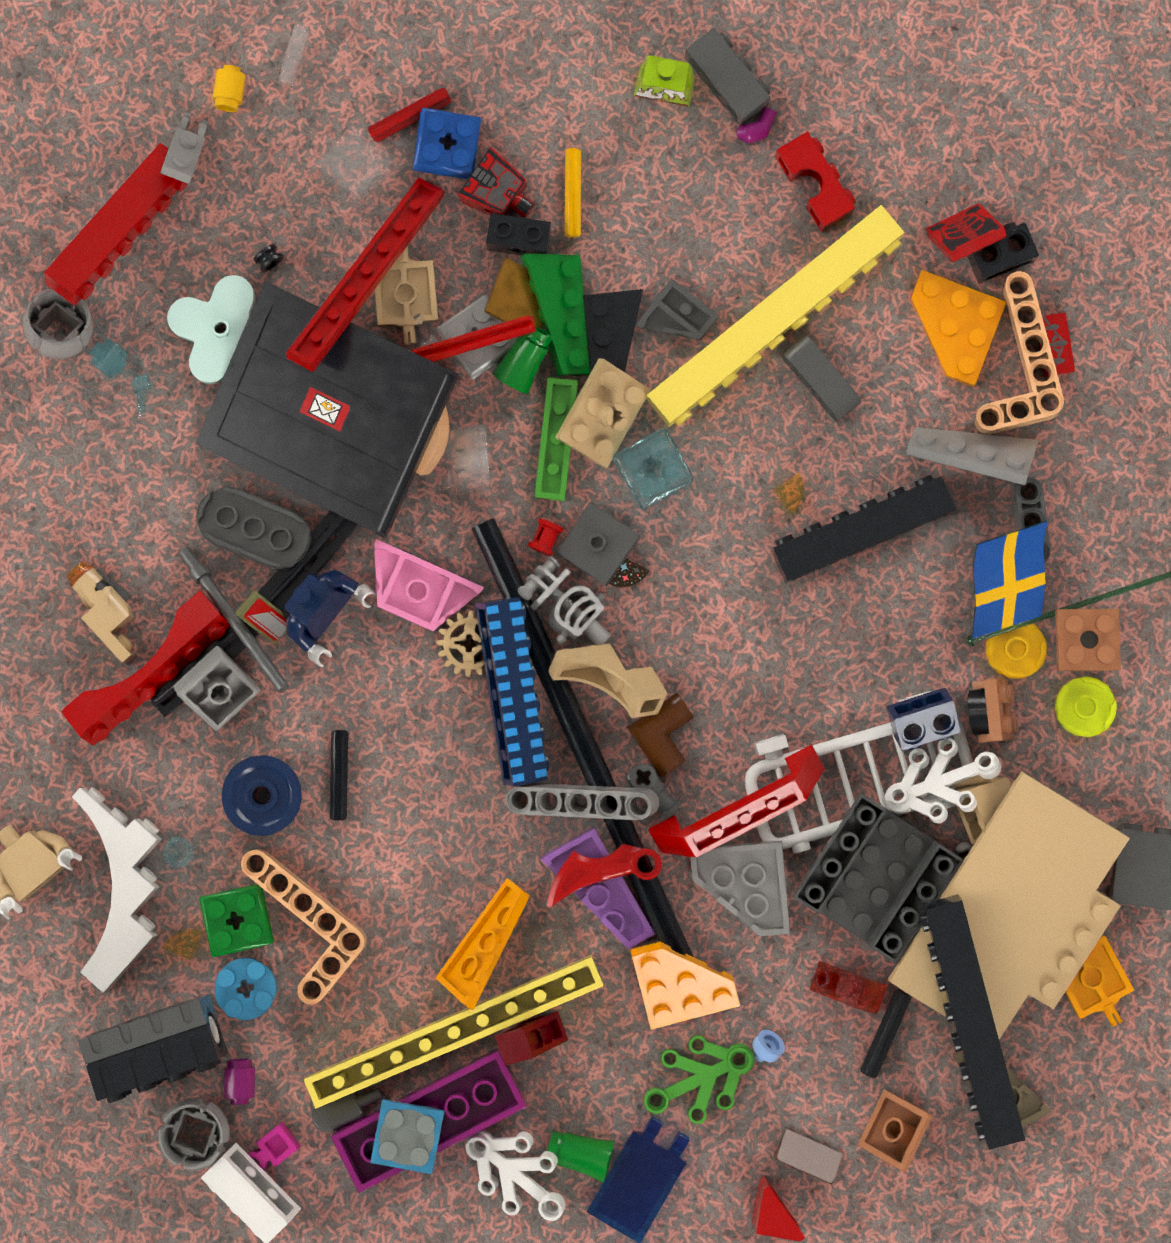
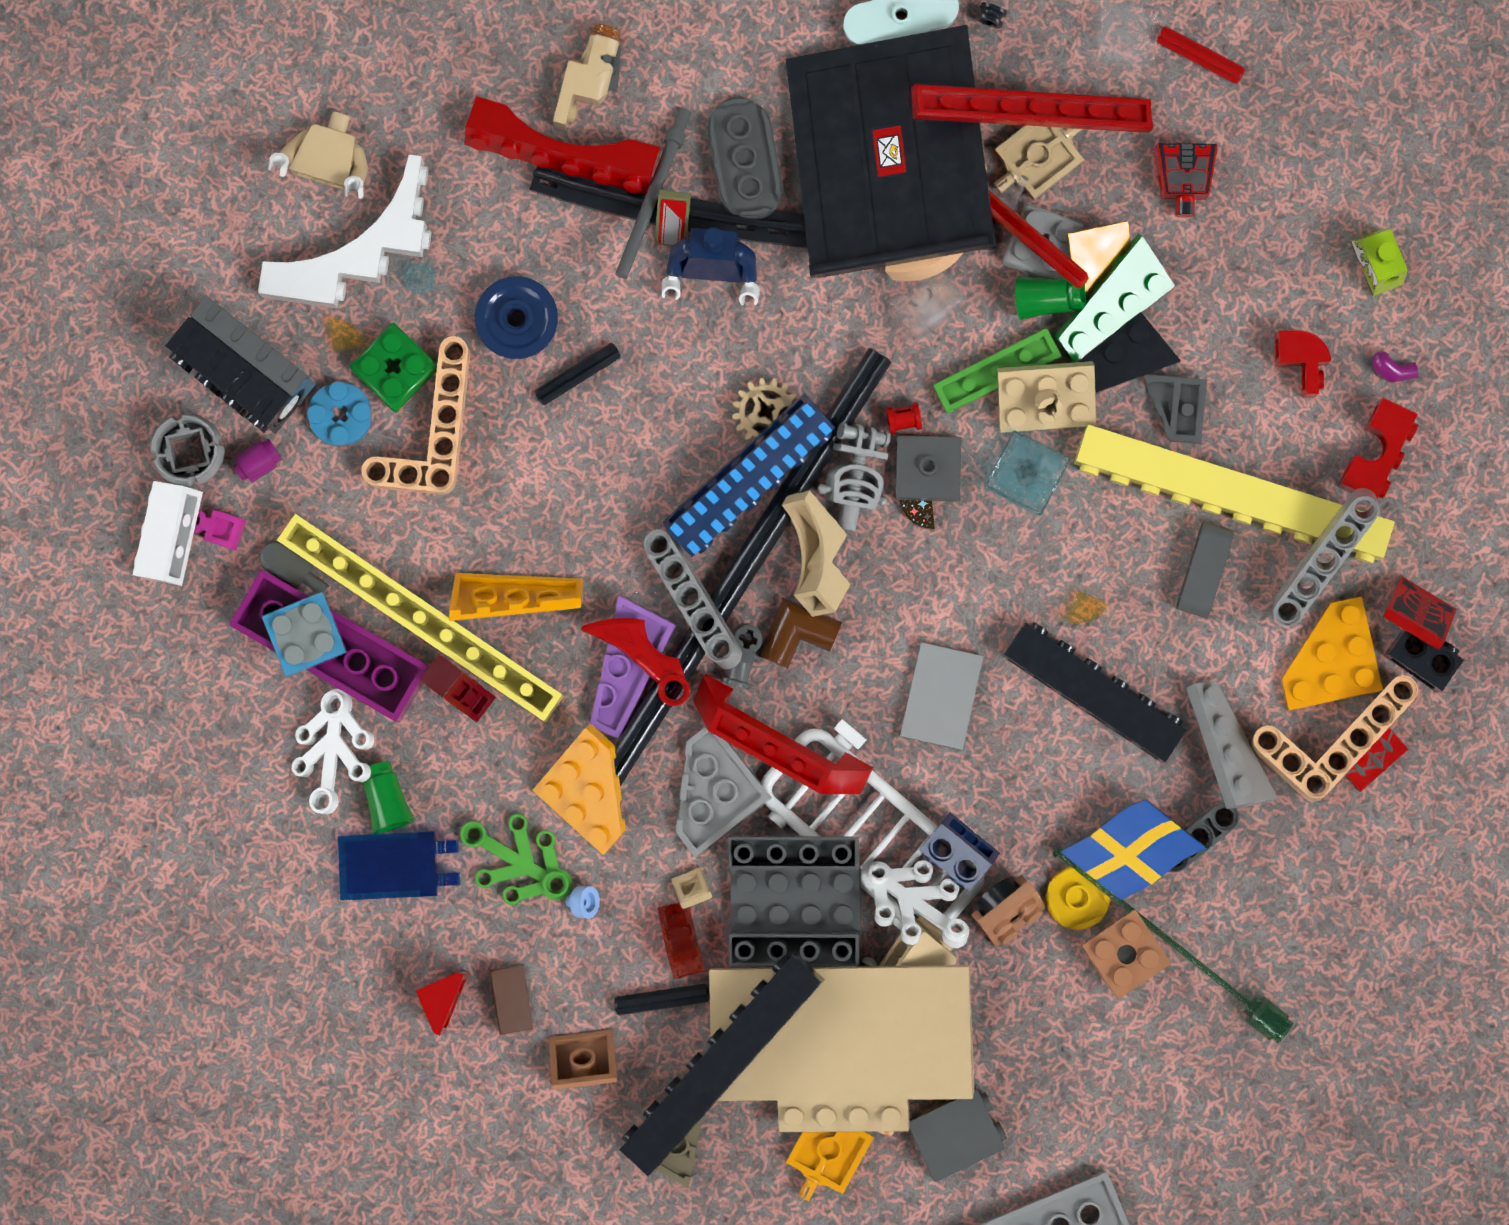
camera: 55 degrees right, 0 degrees up
(211, 705) = (566, 223): light grey brick -> none
(418, 588) = (785, 336): bright pink wing -> none
(430, 154) = (1215, 112): blue brick -> none
(518, 235) = (1155, 220): black brick -> none
(573, 192) = (1226, 243): yellow axle -> none
(703, 185) = (1303, 350): none -> red brick
(728, 76) = (1422, 312): dark grey brick -> none
(786, 652) = (941, 696): none -> light grey tile
(812, 952) = (691, 888): none -> tan tile
(864, 268) = (1326, 542): none -> light grey beam
(1075, 708) = (1061, 983): neon yellow tile -> none

